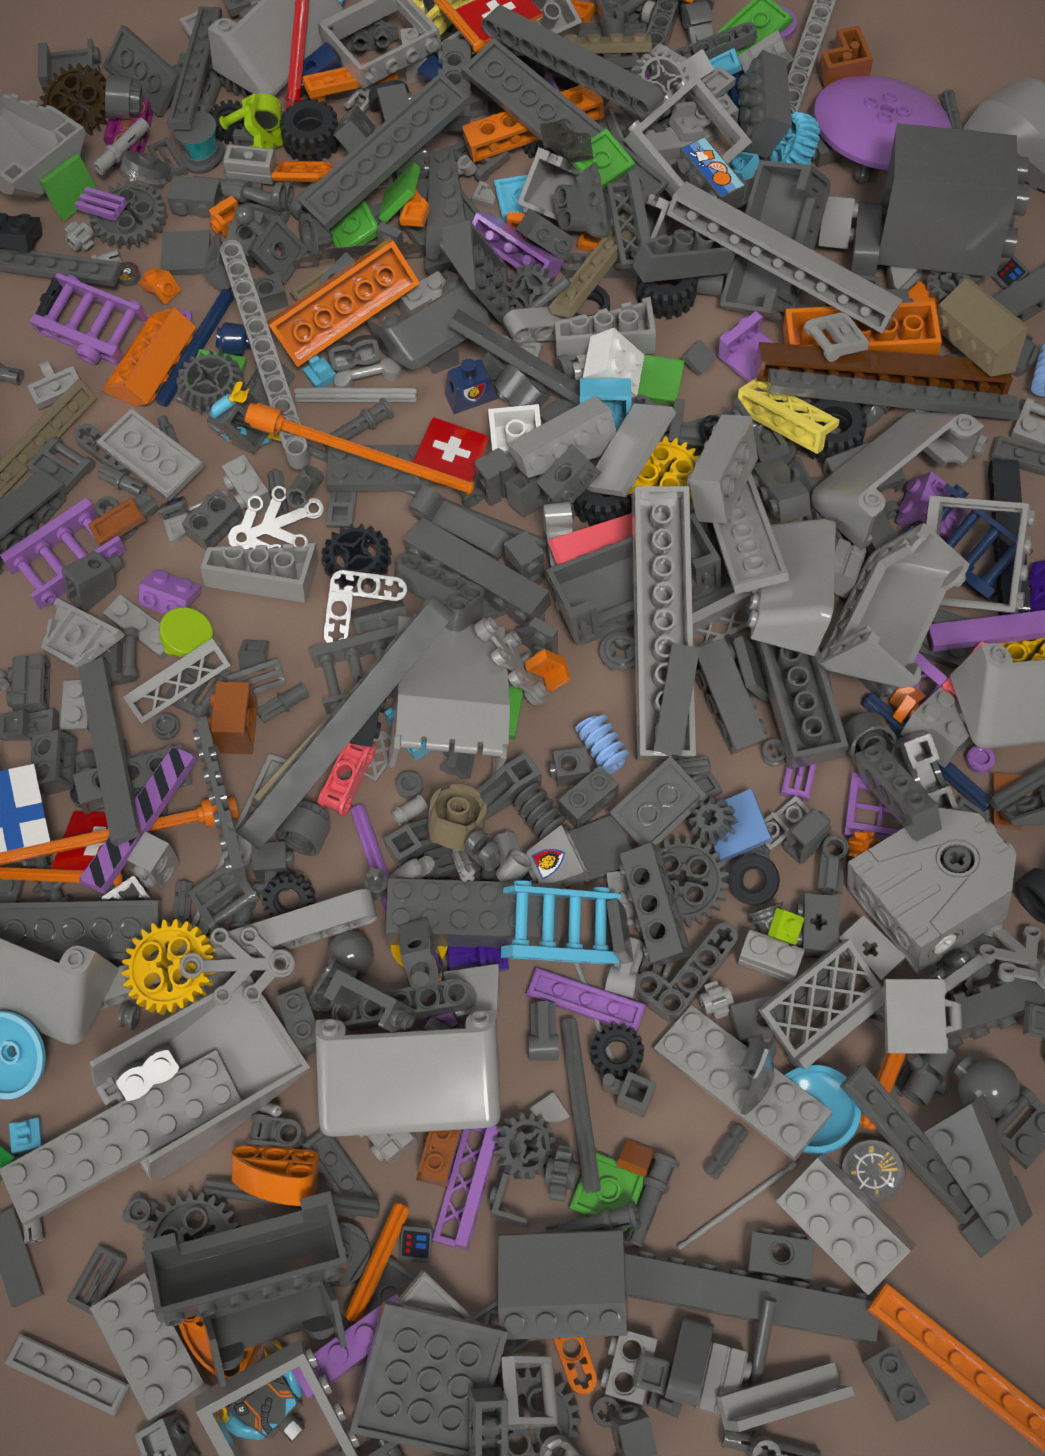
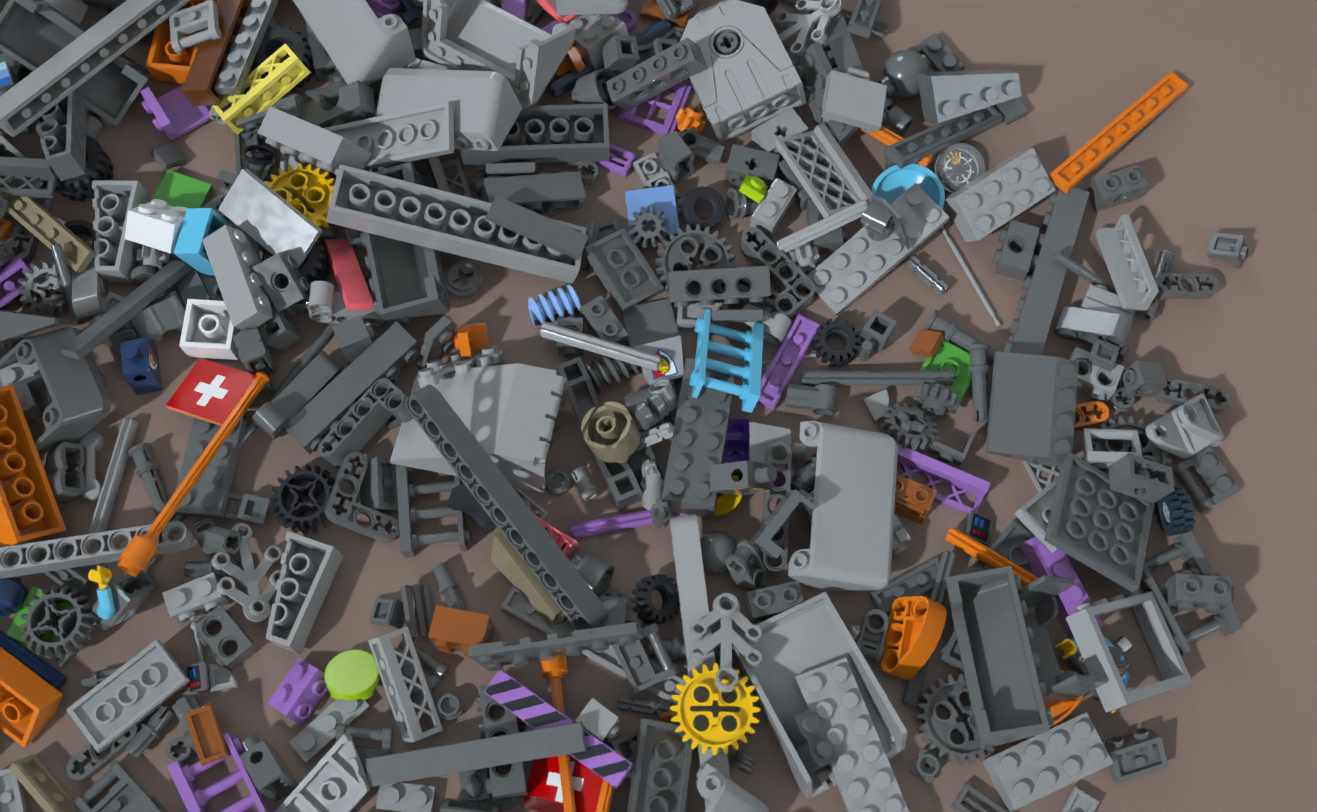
camera: 85 degrees left, 5 degrees up
(319, 372) = (75, 513): medium azure tile -> none
(555, 792) = (600, 346): none -> light grey axle
(747, 1006) = (822, 227): none -> light grey axle

